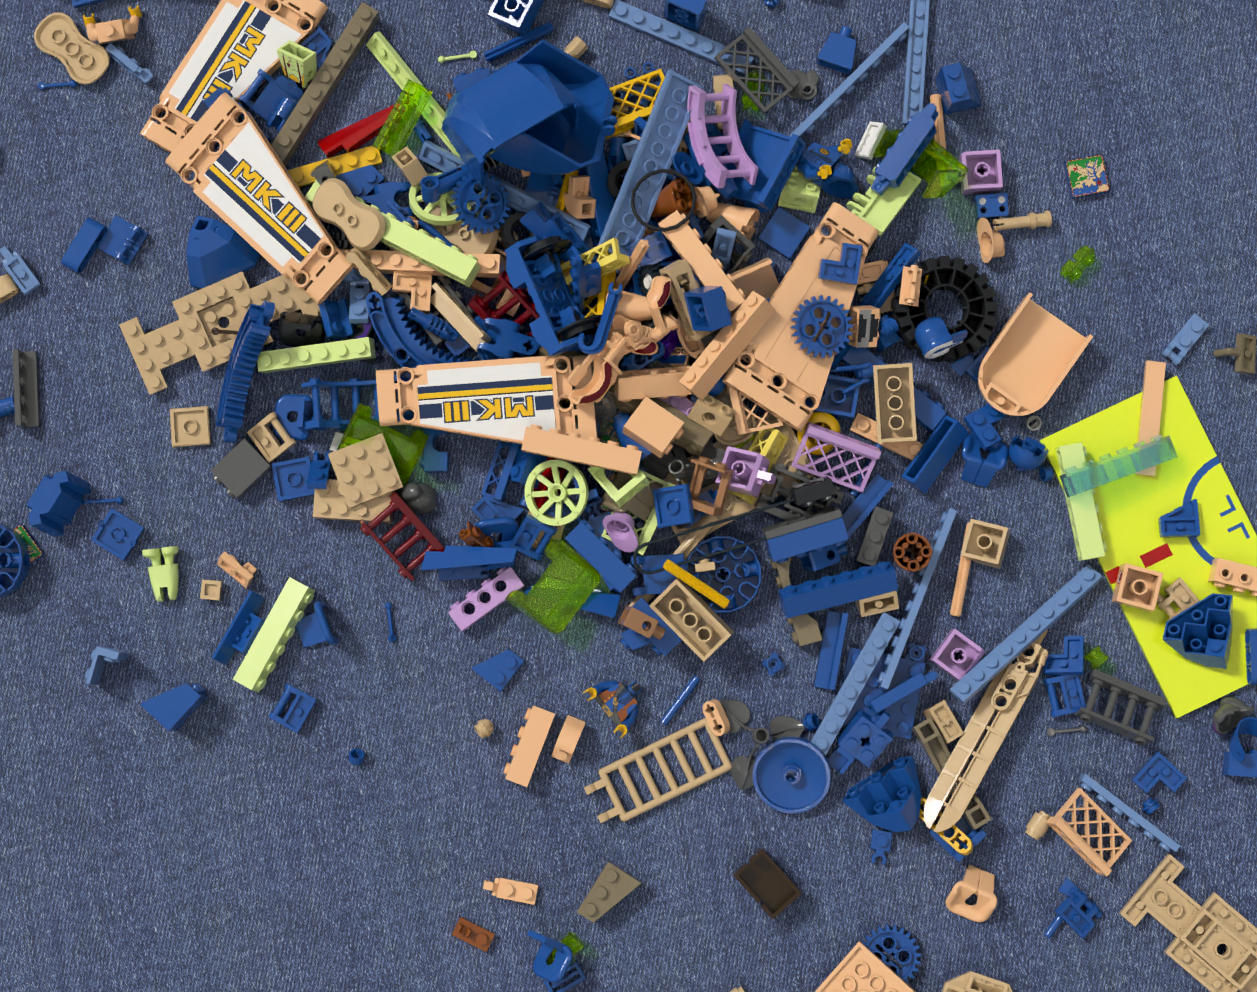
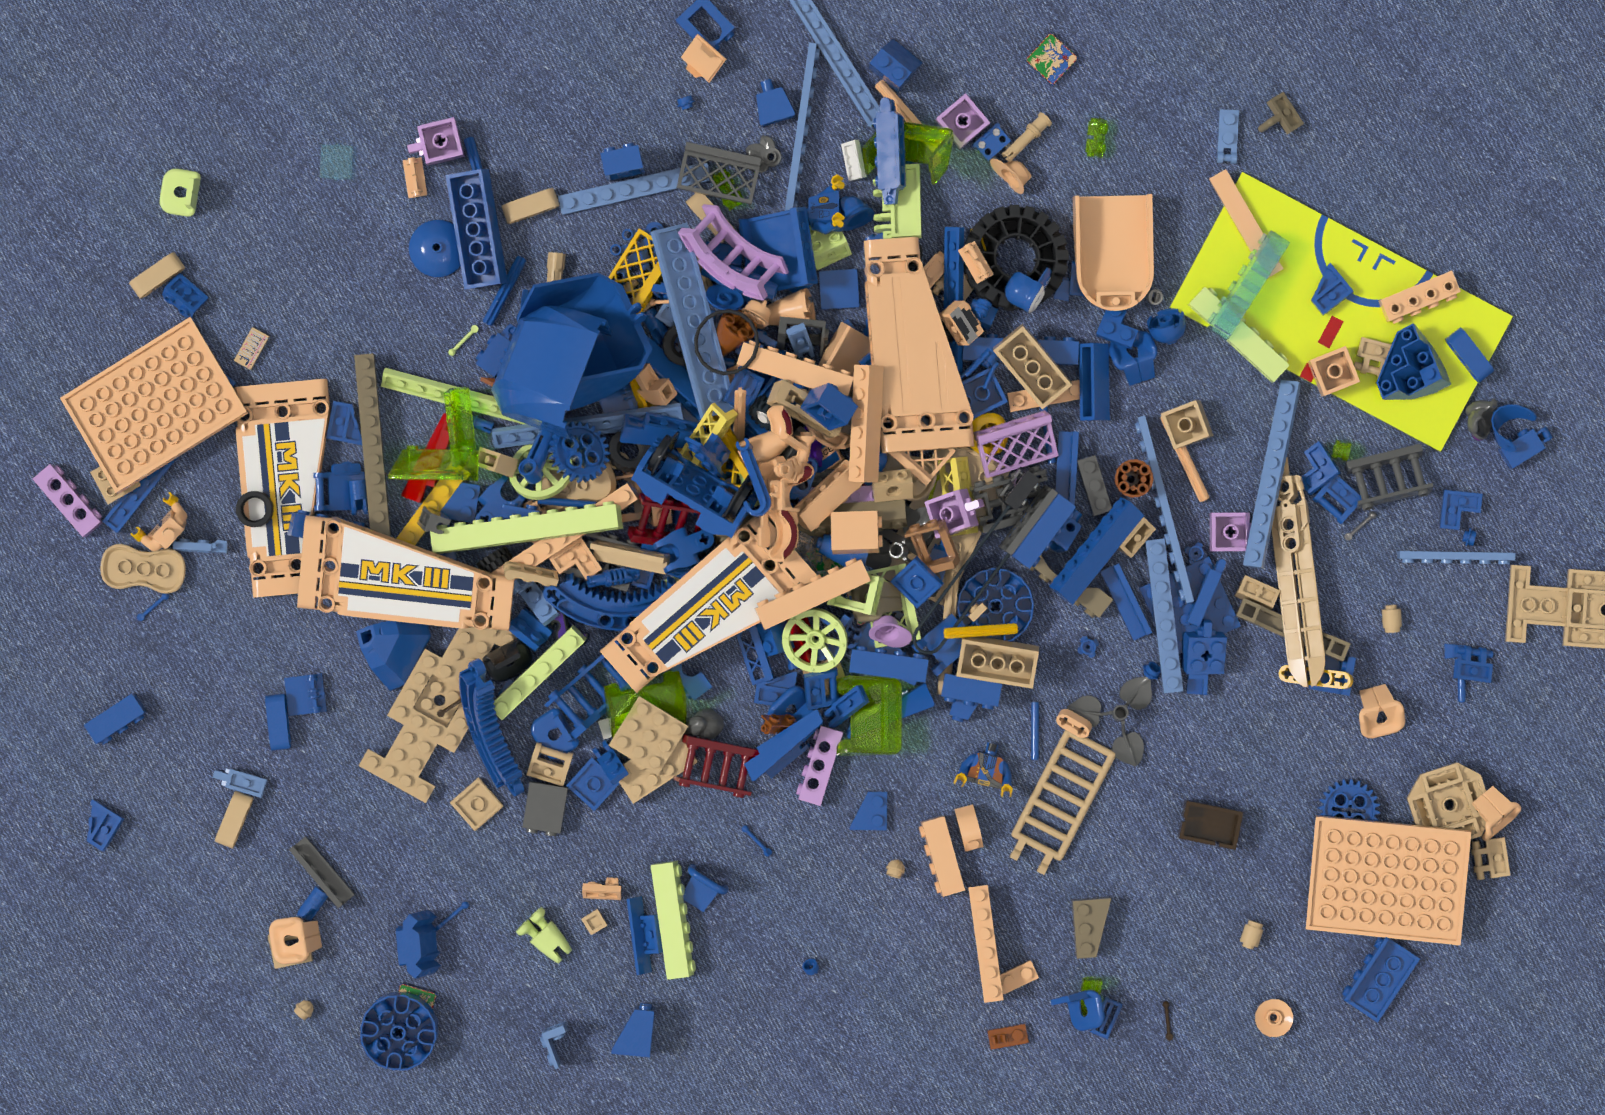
camera: 40 degrees left, 5 degrees up
(117, 534) = (485, 933): blue plate -> none
(185, 50) = (240, 509): none -> black tyre
(298, 63) = (340, 444): yellowish green torso -> none
(298, 710) = (737, 966): blue plate -> none
(359, 222) = (466, 540): tan plate -> none
(361, 131) = (436, 464): none -> clear neon green windscreen
(511, 844) = (986, 944): none -> light nougat brick
(542, 566) = (846, 706): none -> blue hinge
(633, 620) = (953, 696): medium nougat torso -> none
(791, 775) = (1167, 724): blue dish -> none
(836, 336) = (946, 349): blue gear -> none
(844, 270) = (915, 289): blue plate -> none
(880, 842) = (1276, 725): blue plate -> none
(888, 796) = (1256, 684): blue brick -> none
(1046, 473) = (1194, 330): blue hinge -> none
(1076, 841) = (1431, 610): light nougat fence -> none

